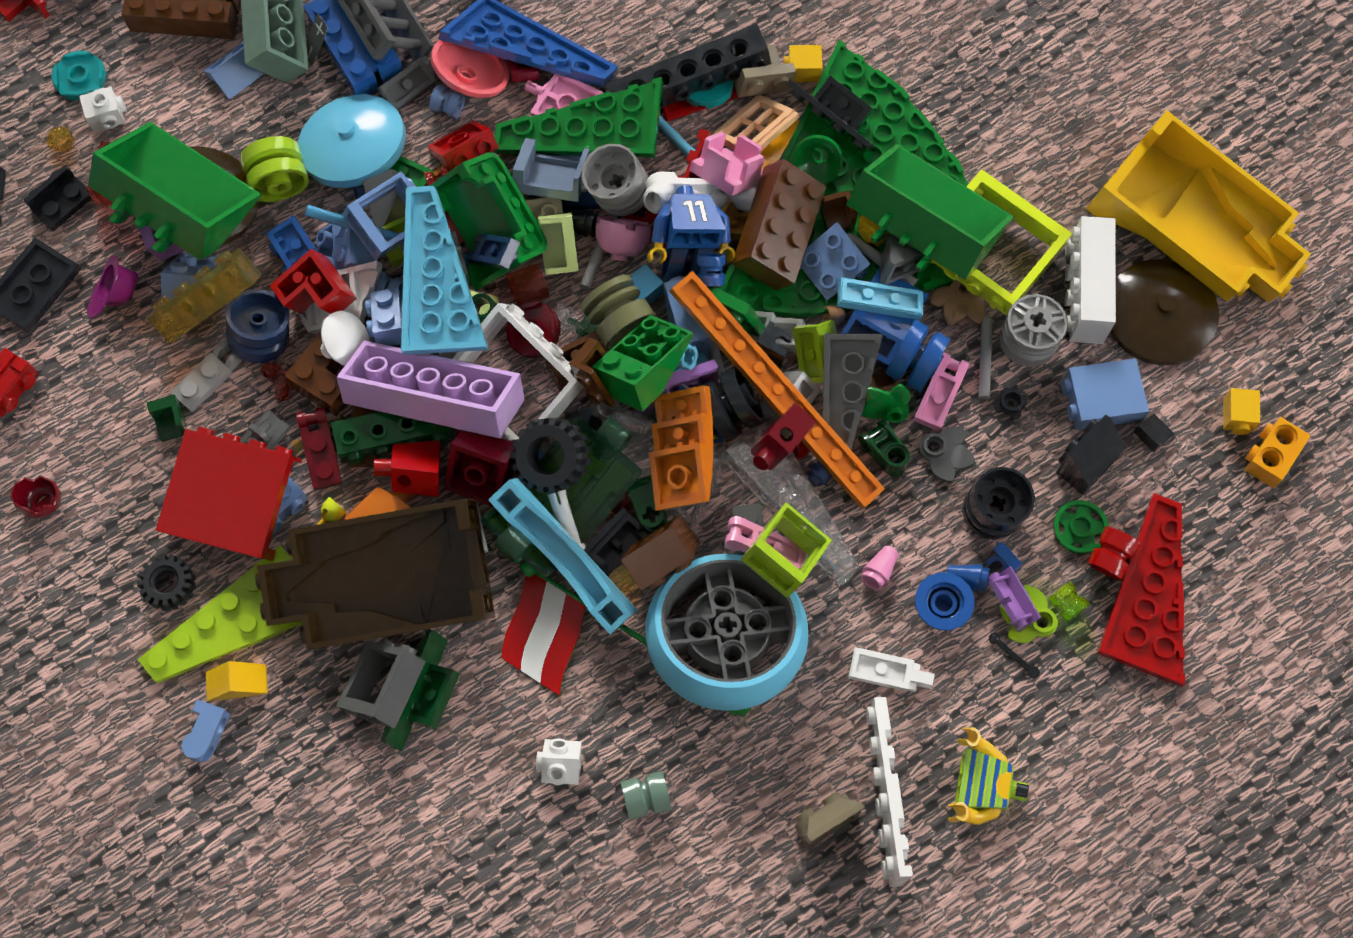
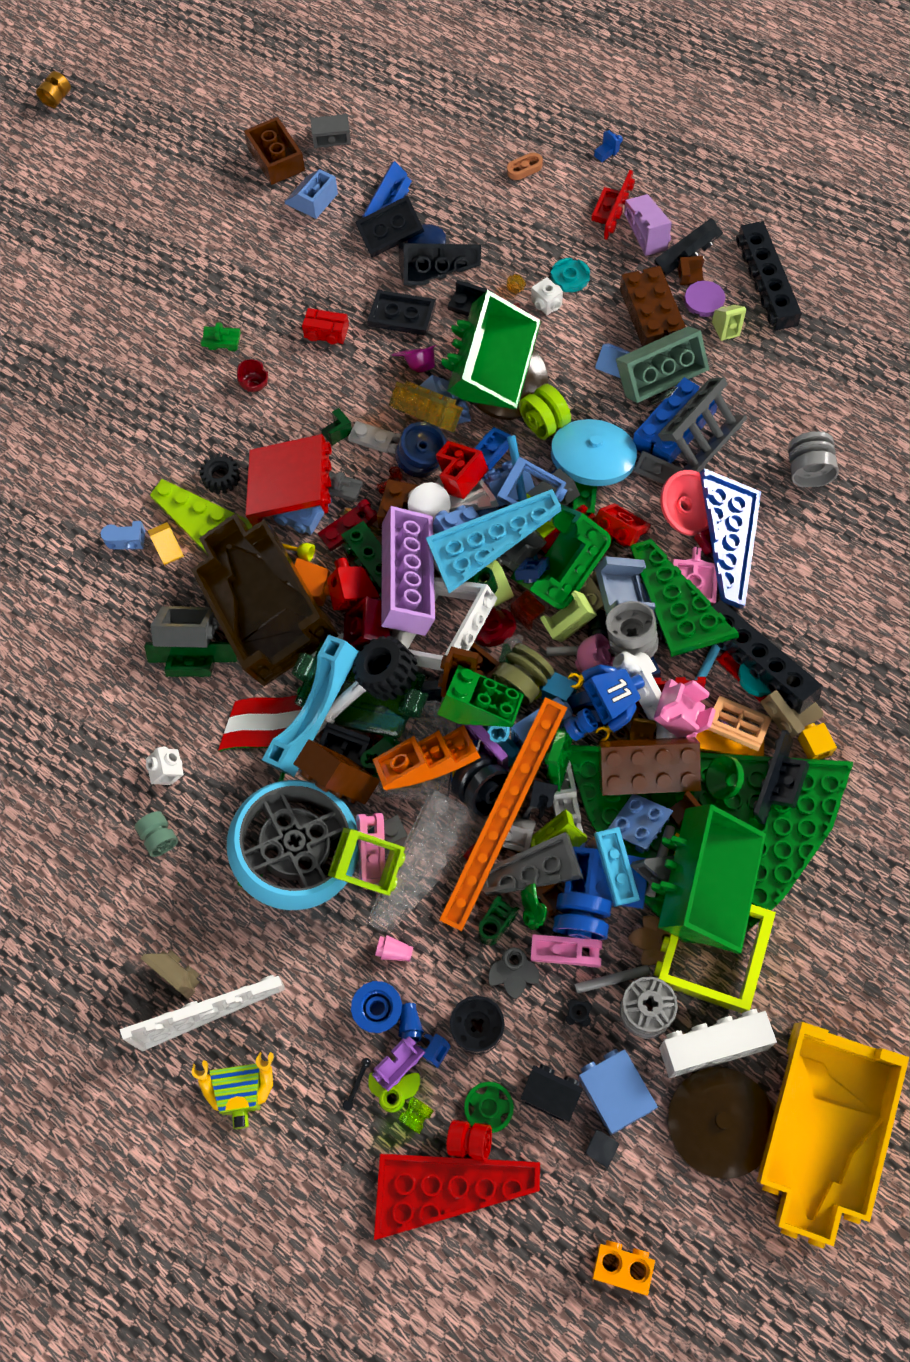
camera: 75 degrees right, 5 degrees down
(445, 101) = (653, 506): medium blue wheel -> none
(773, 446) = (465, 828): dark red torso -> none
(819, 474) = (453, 875): dark blue plate -> none
(888, 671) = (309, 983): white hinge -> none
(1241, 410) = (650, 1223): yellow brick -> none

